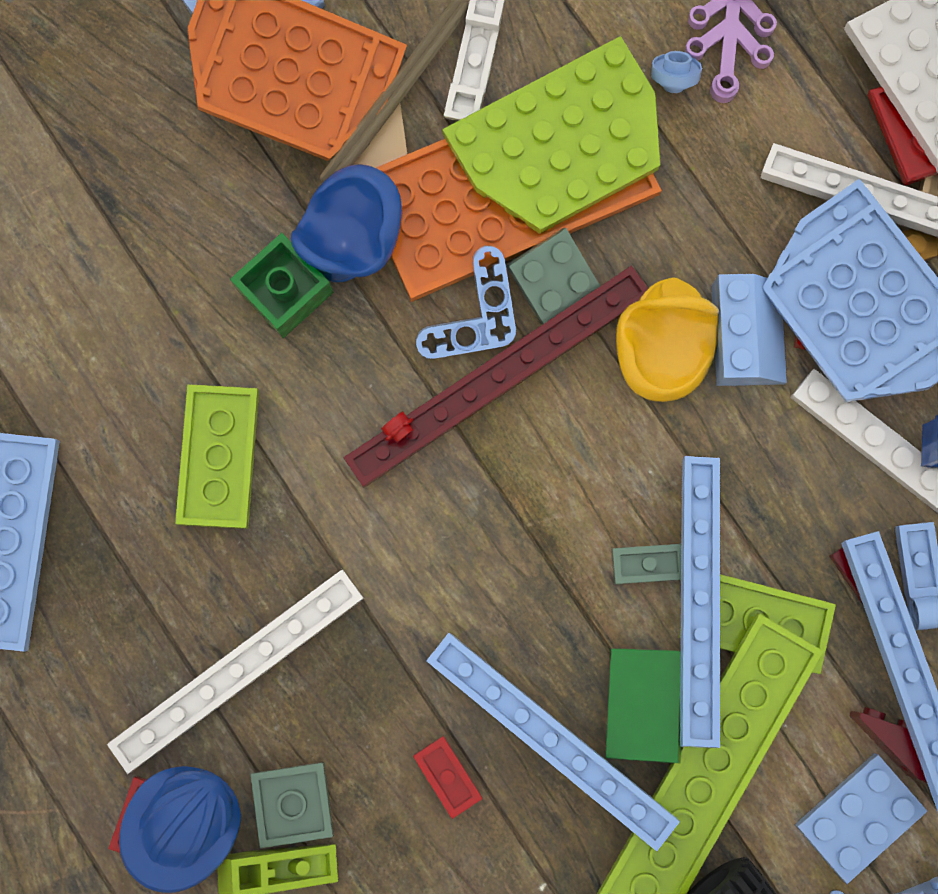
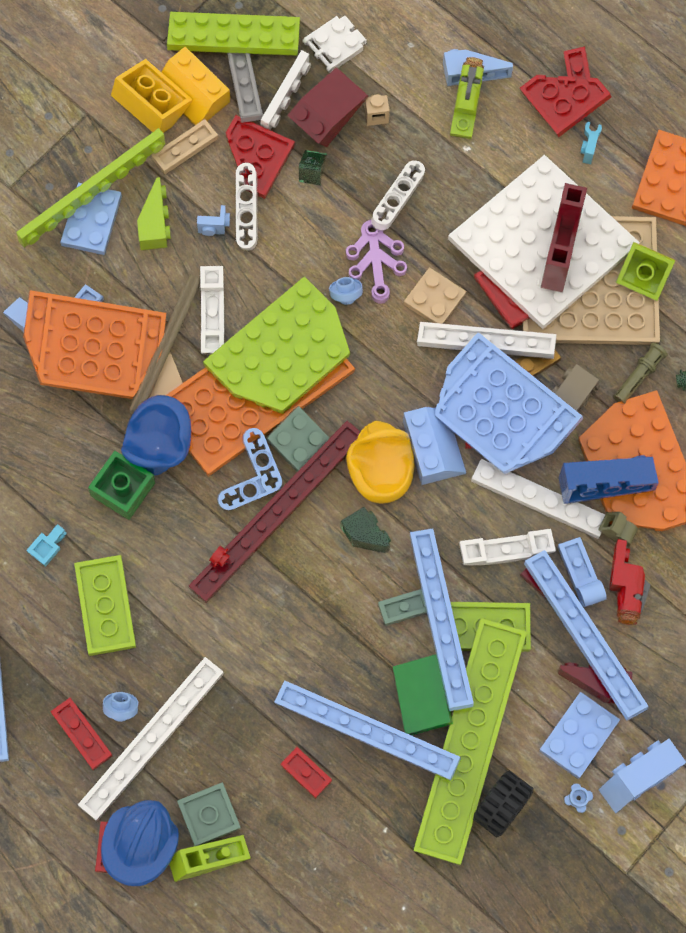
camera: 15 degrees left, 10 degrees down
(138, 638) = (81, 733): none -> red plate
(153, 350) = (46, 547): none -> medium azure plate
(202, 613) = (120, 706): none -> light blue plate
(617, 439) = (364, 533): none -> clear green slope
(802, 111) = (434, 297): none -> tan plate
(822, 512) = (506, 549): none -> white slope

